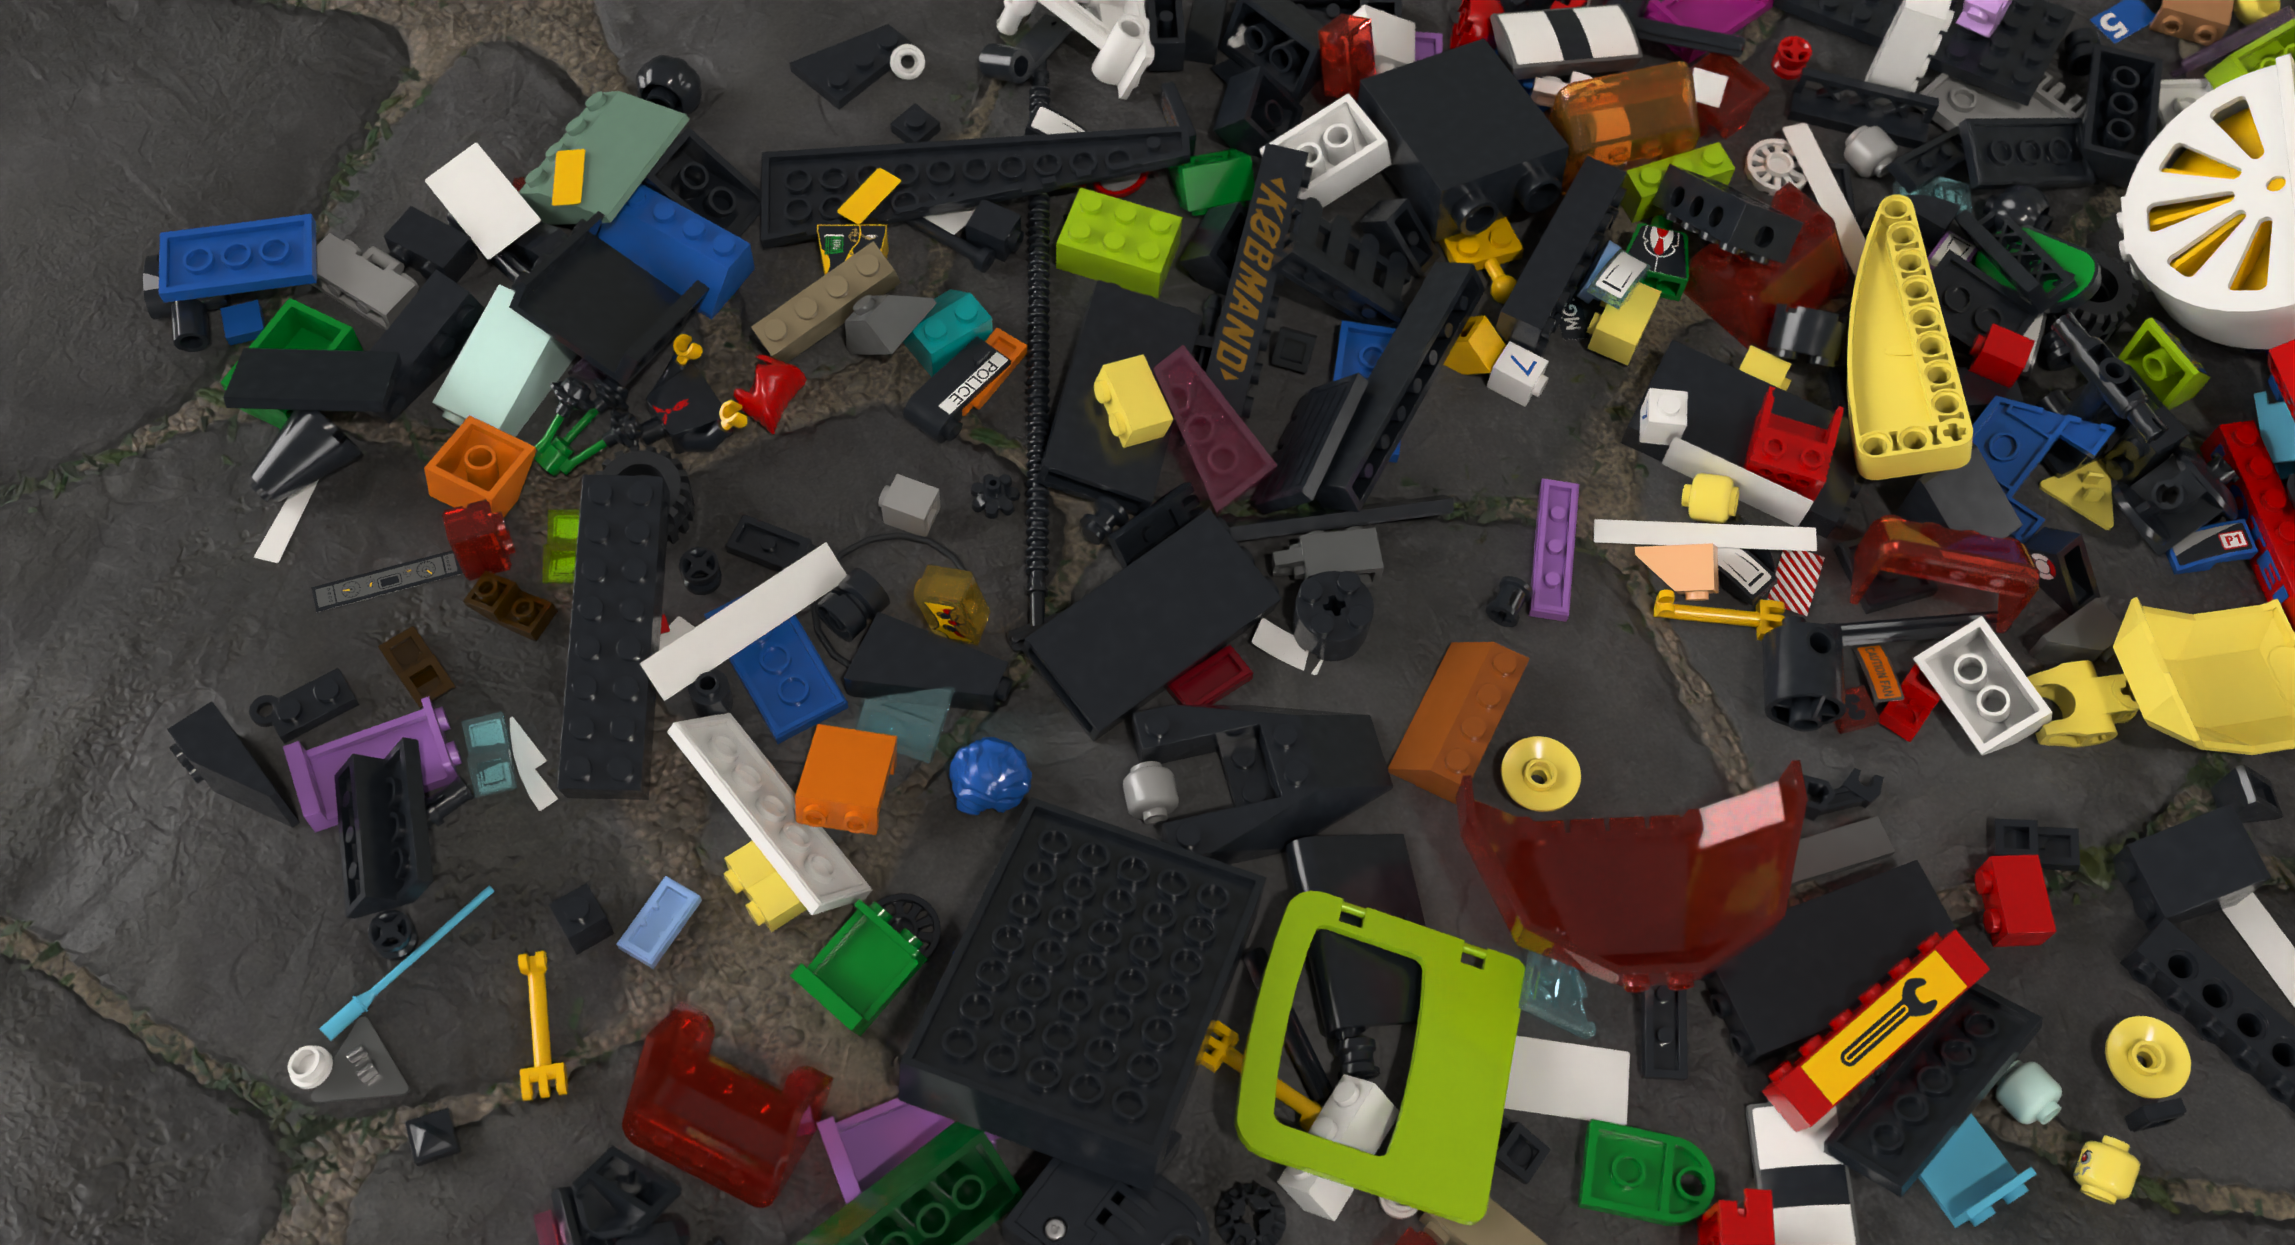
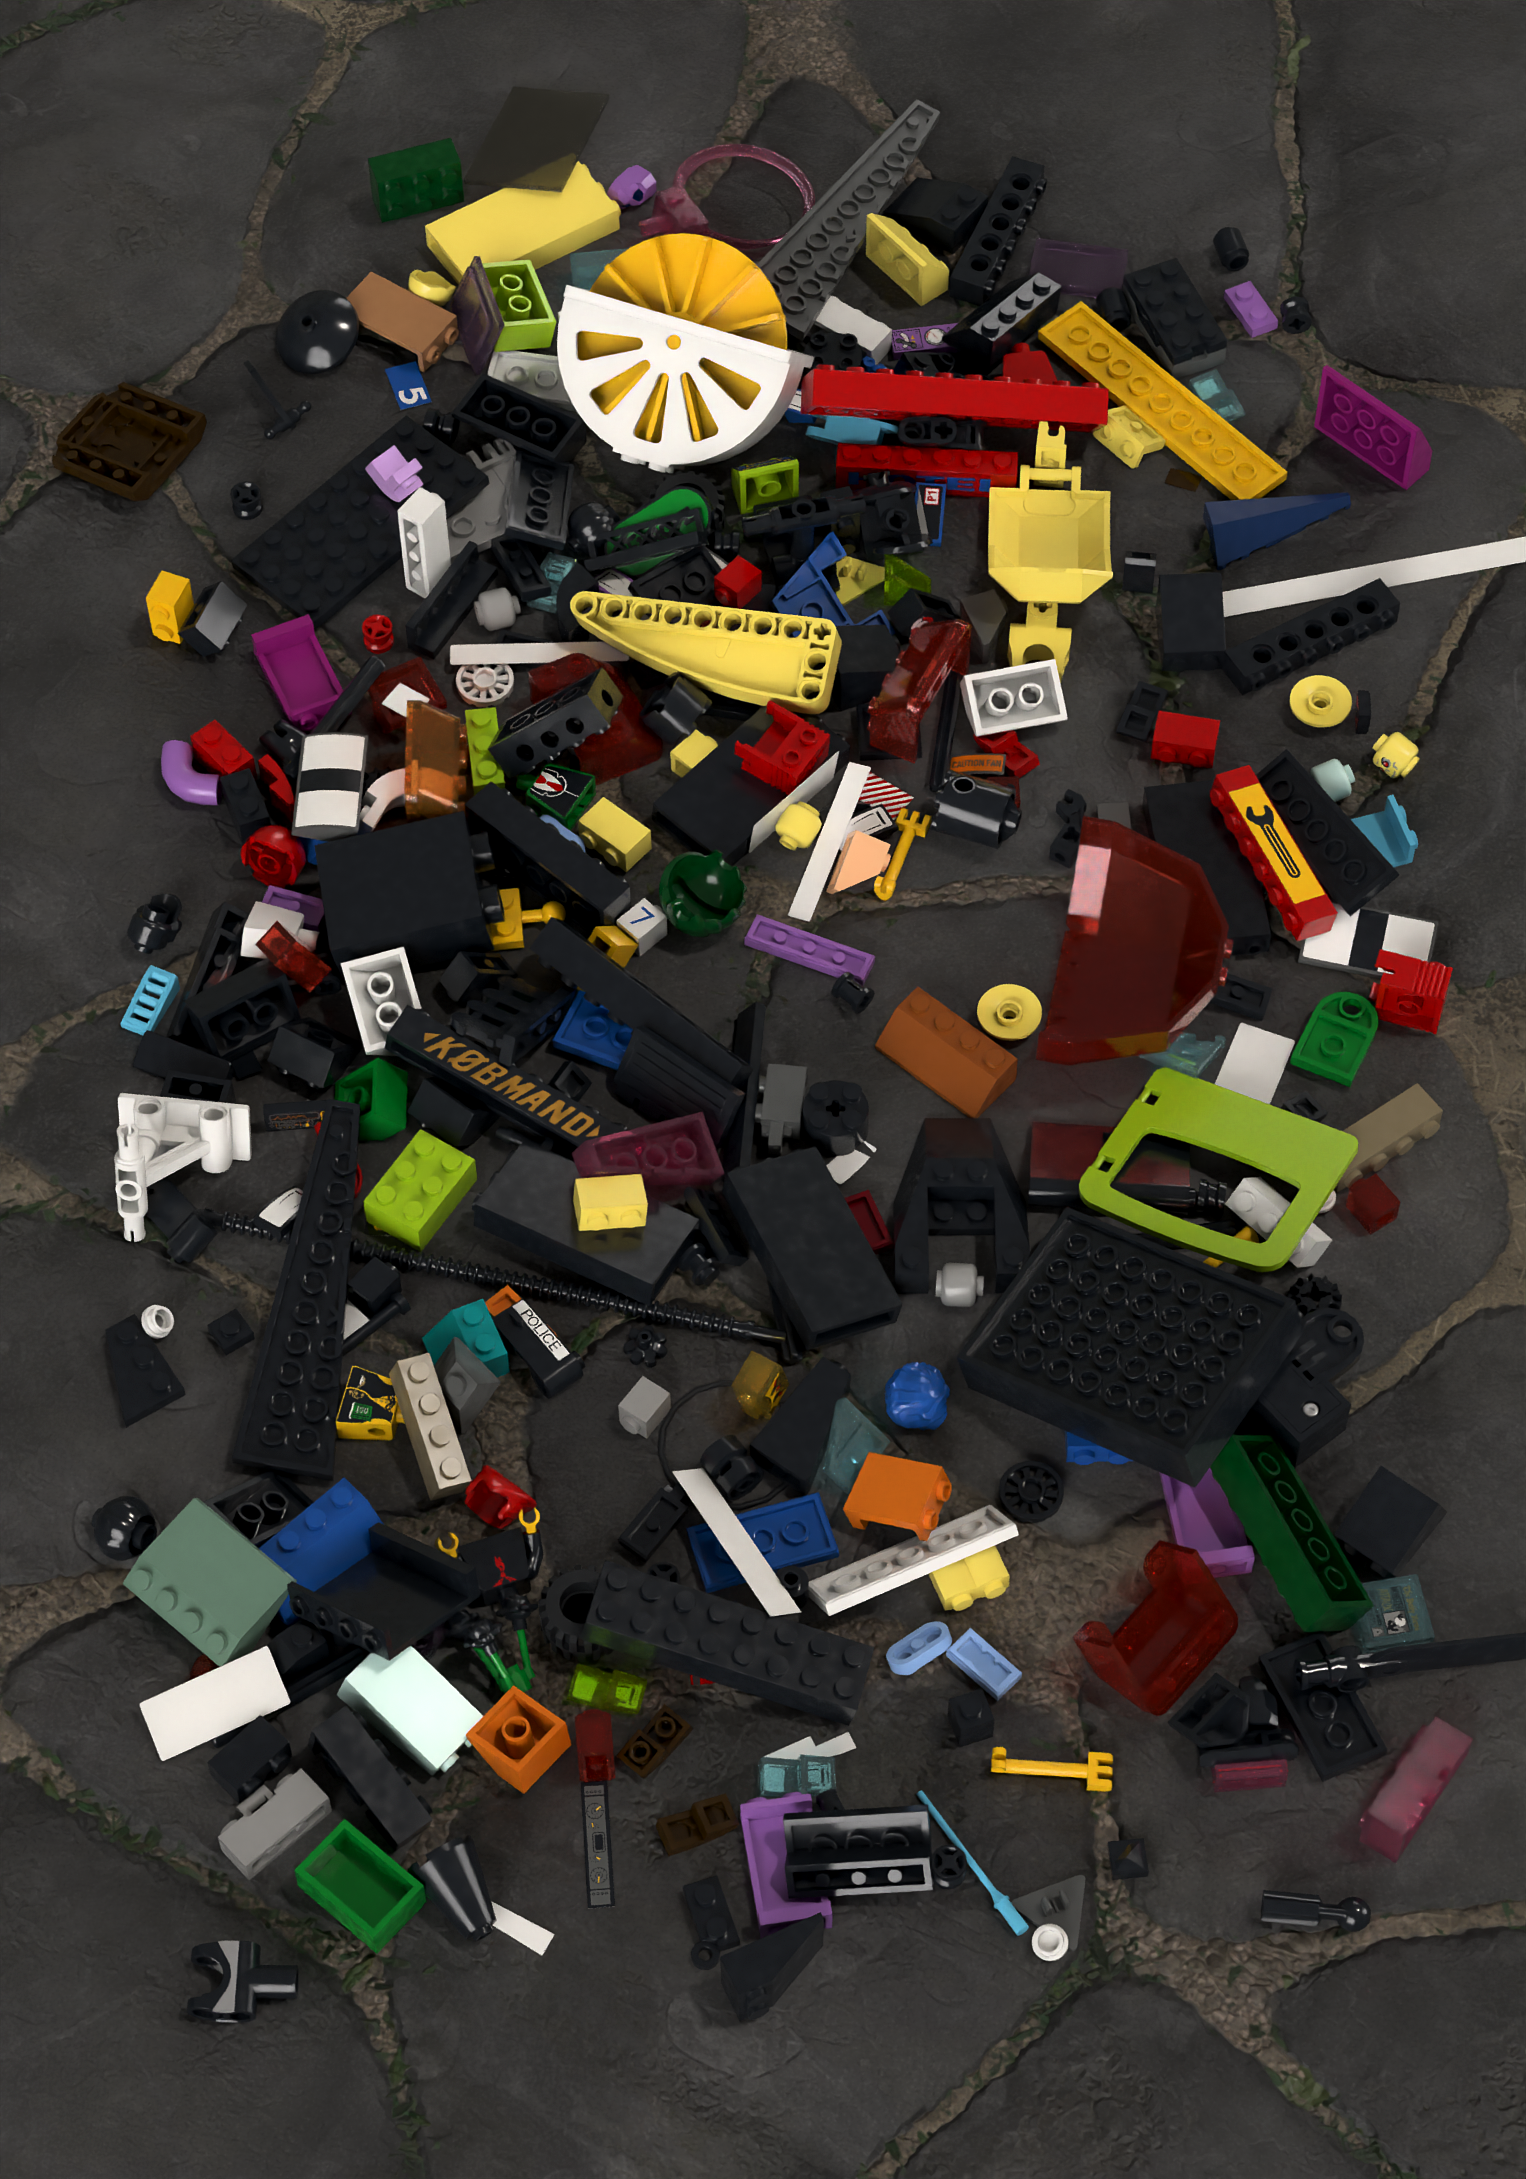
camera: 70 degrees left, 5 degrees down
(237, 258) = (231, 1913): blue plate -> none
(242, 322) = (282, 1938): blue tile -> none
(313, 380) = (405, 1847): black tile -> none
(568, 177) = (234, 1608): yellow sticker -> none
(668, 848) = (919, 1648): none -> light blue plate
(862, 967) = (1059, 1519): green panel -> none
(869, 196) = (316, 1373): yellow sticker -> none
(1573, 412) = (701, 893): none -> dark green piece
(1619, 279) = (589, 820): slope -> none
(1663, 416) = (731, 828): white brick -> none
(2102, 534) = (900, 578): none -> clear neon green slope

